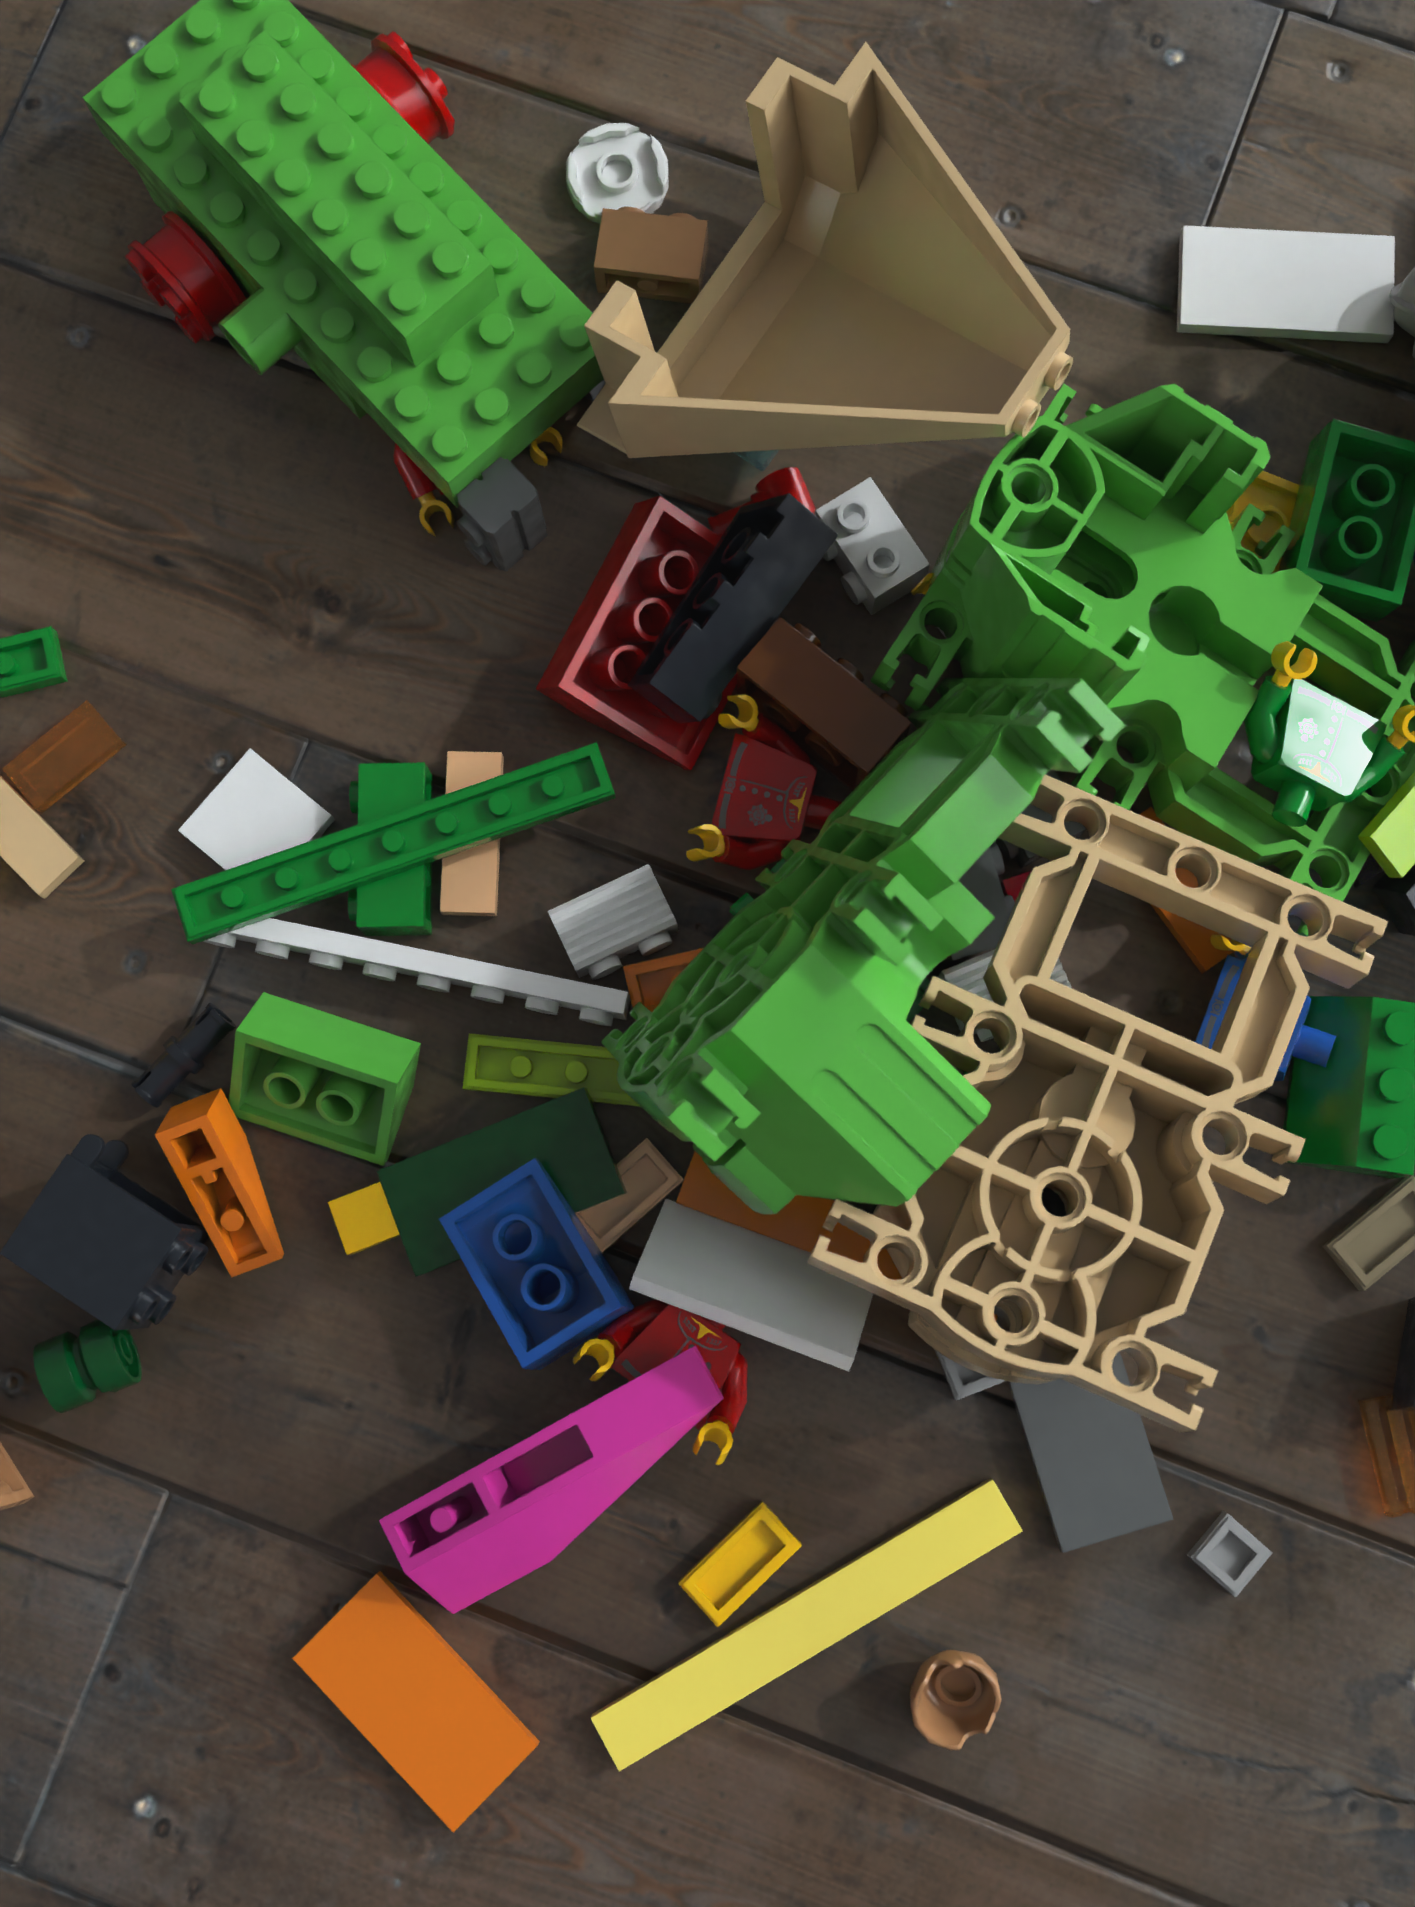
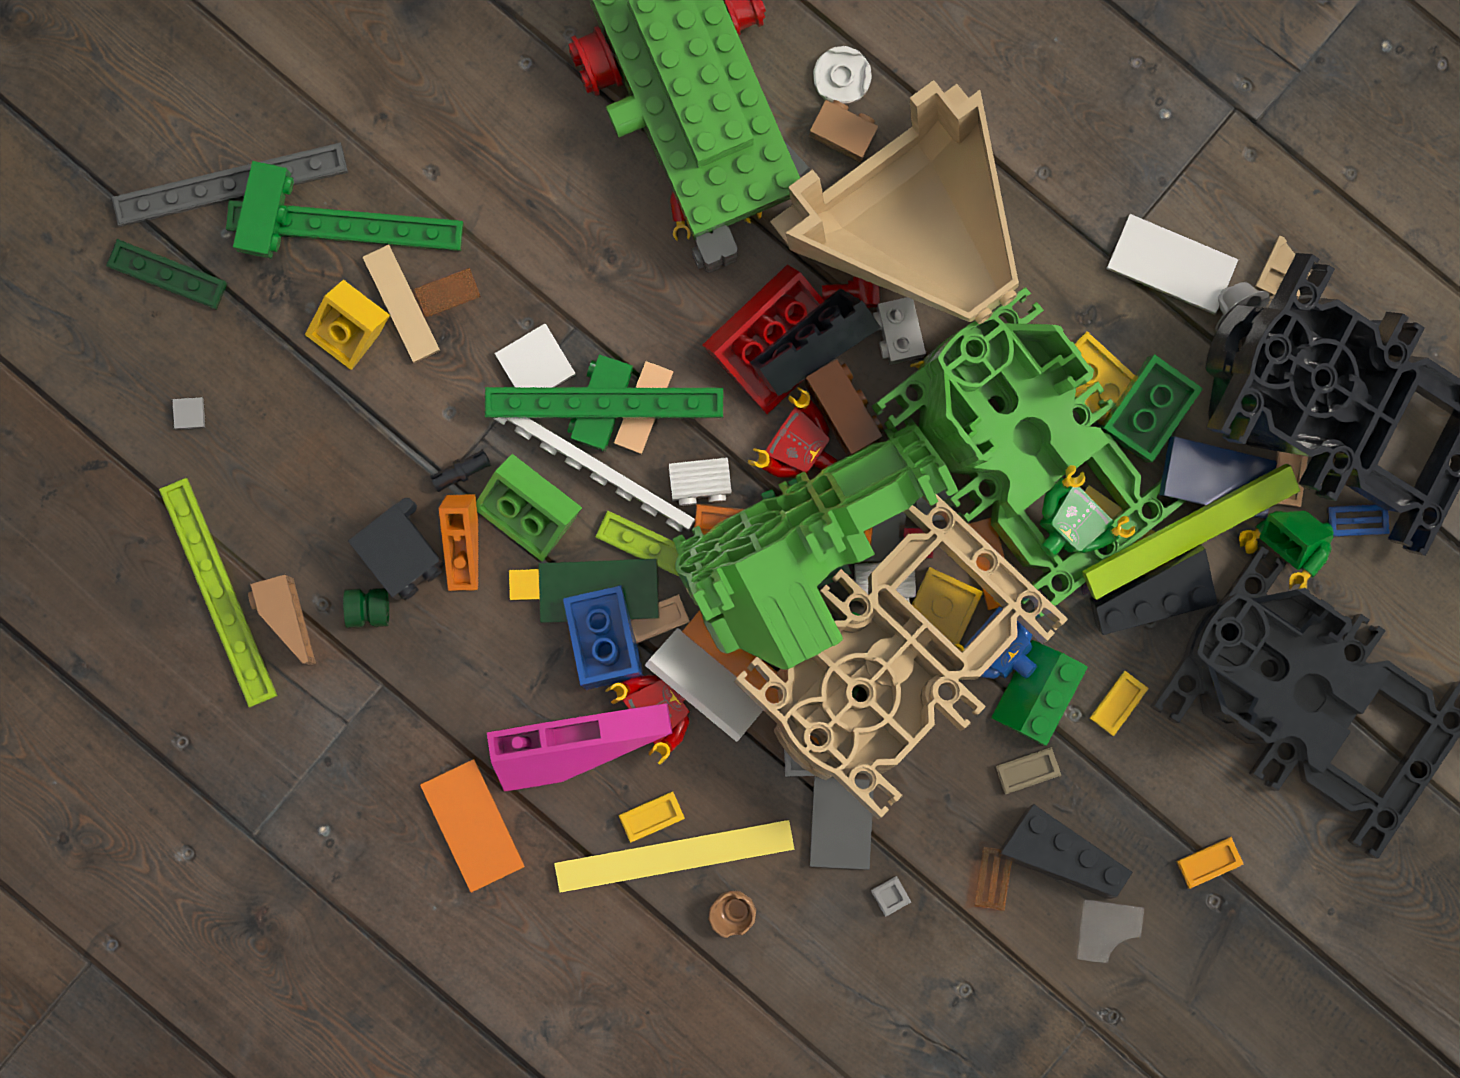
camera: 10 degrees right, 5 degrees up
(1129, 974) = (946, 603): none -> yellow tile

